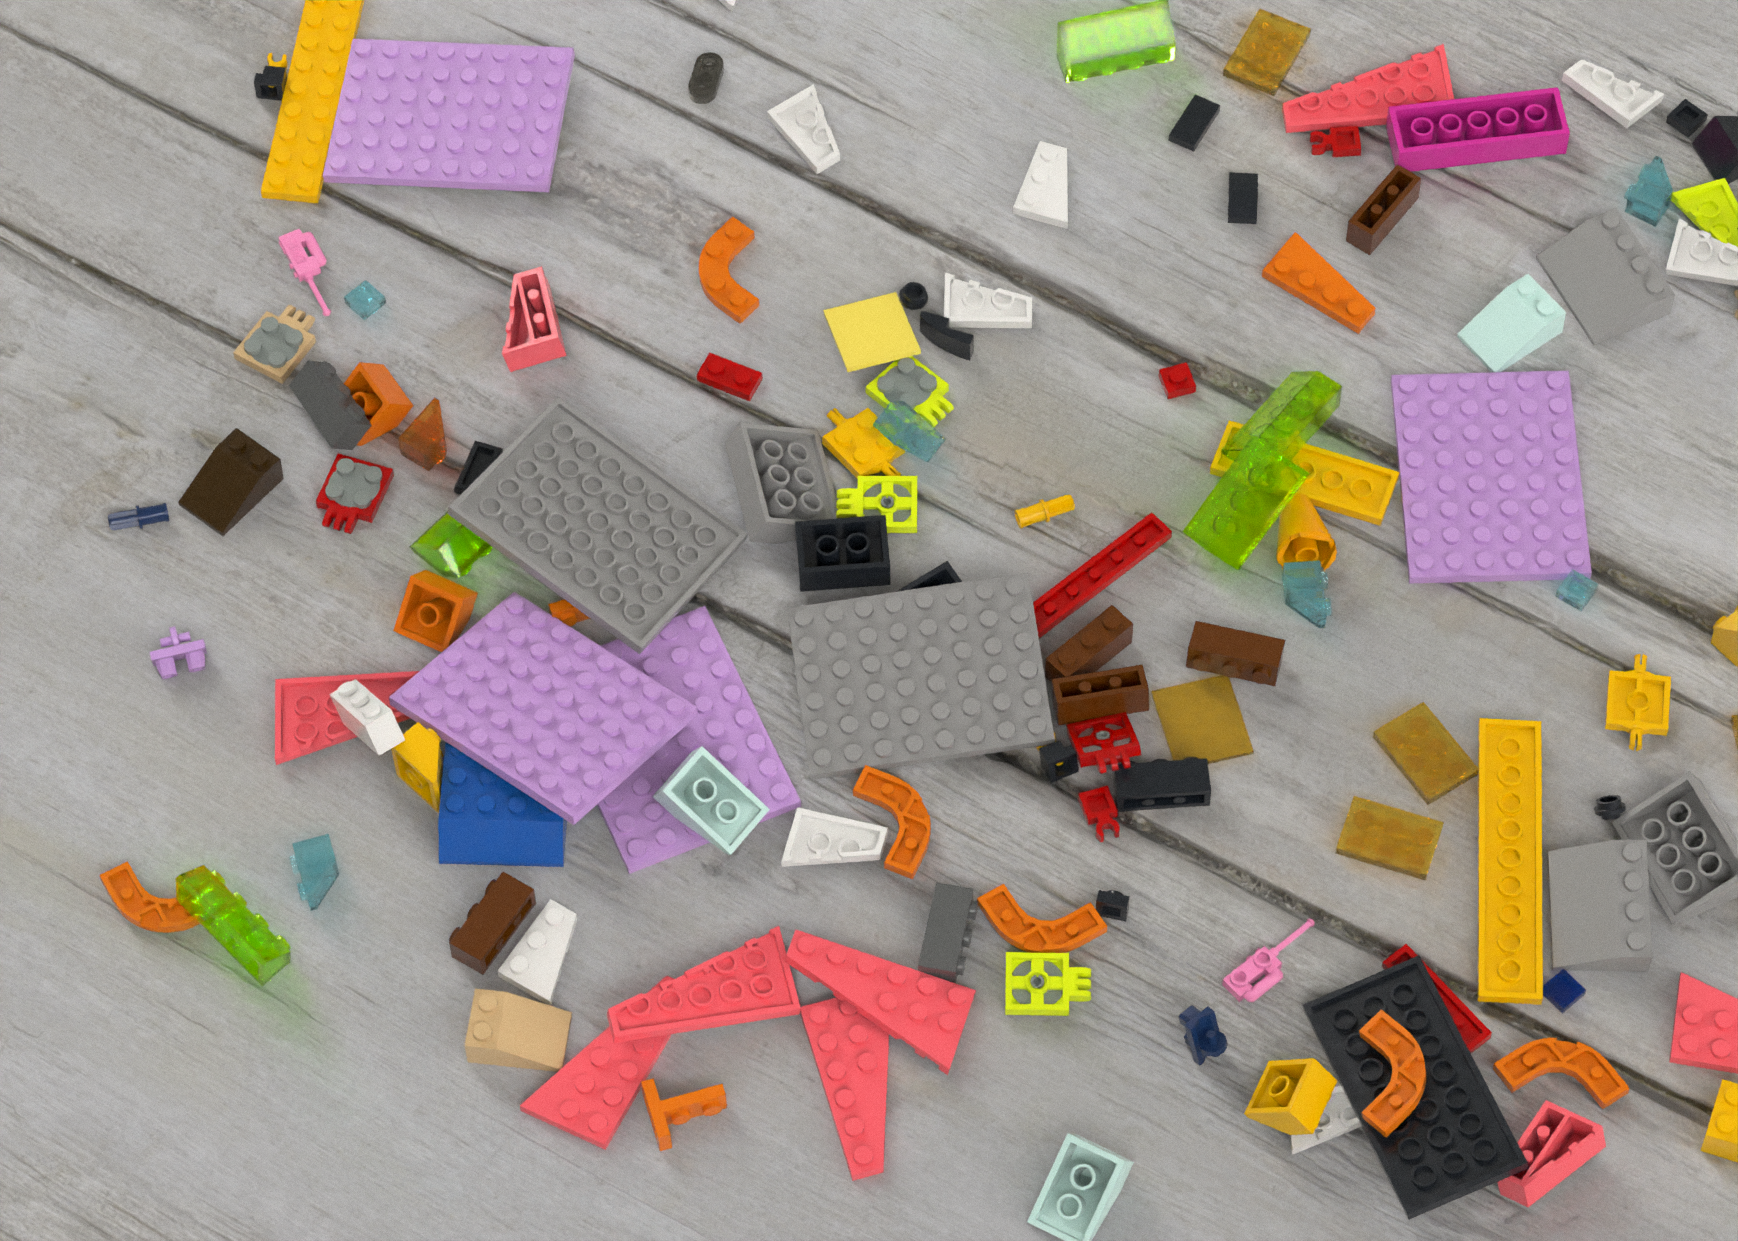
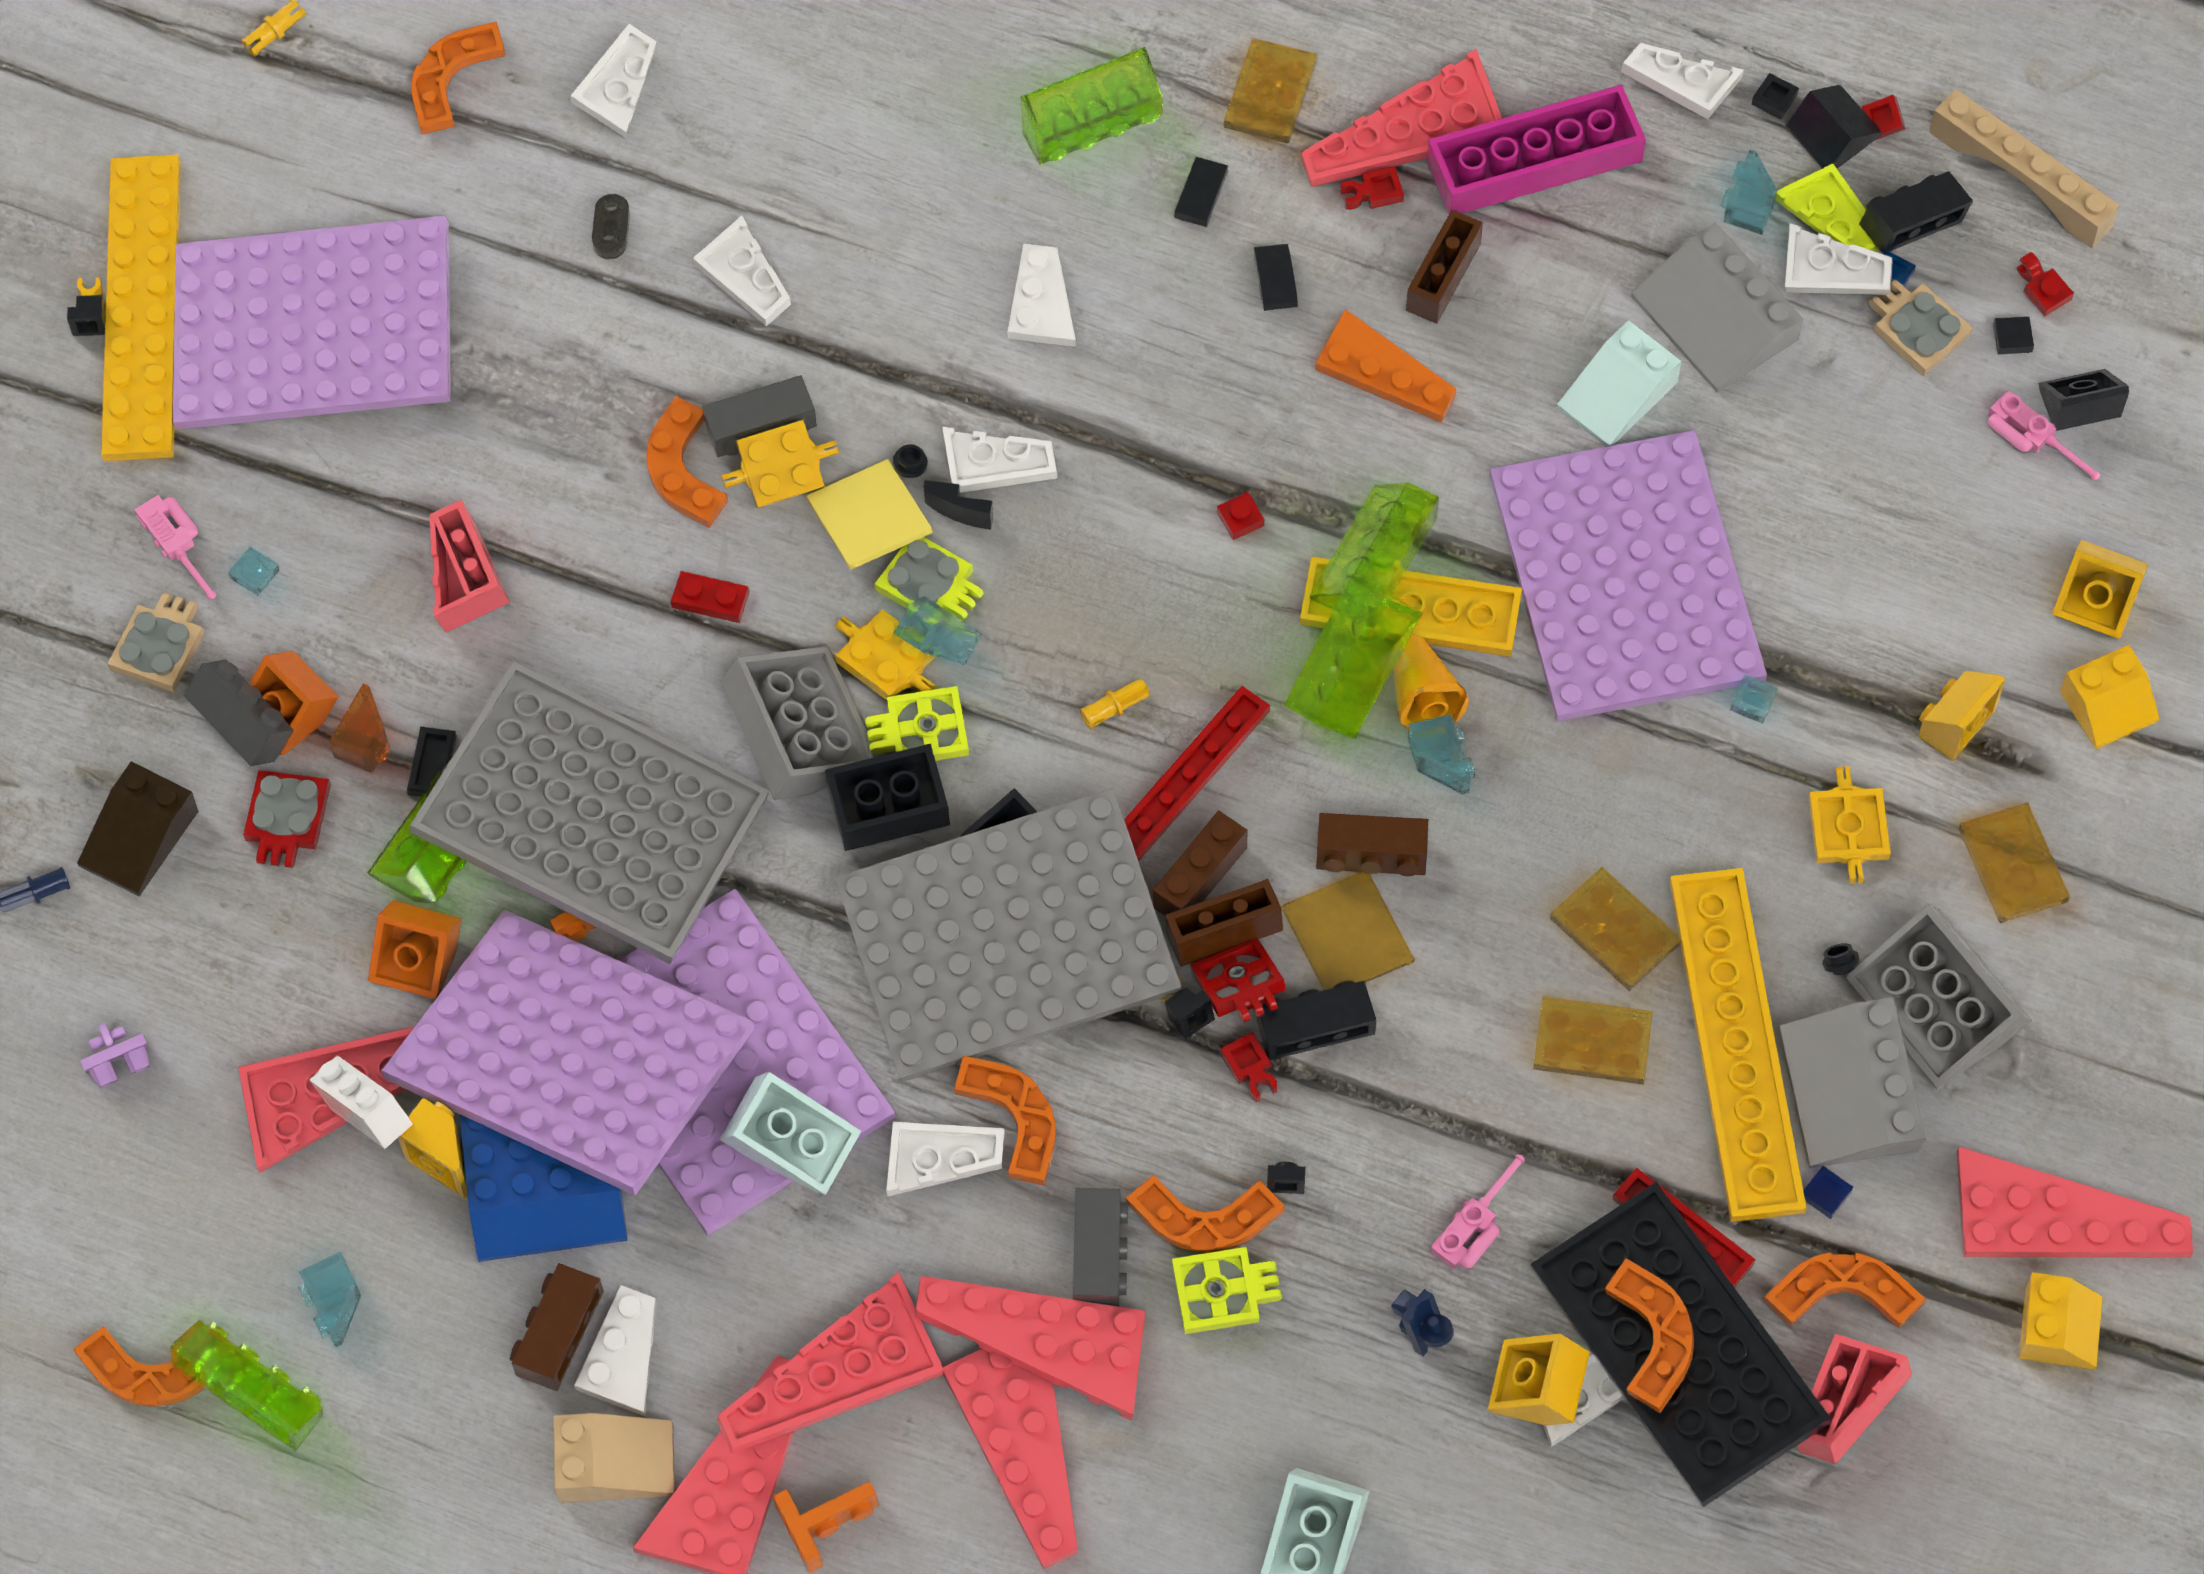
camera: 10 degrees left, 5 degrees up
(797, 242) = (757, 412): none -> dark grey brick
(806, 281) = (780, 464): none -> yellow plate

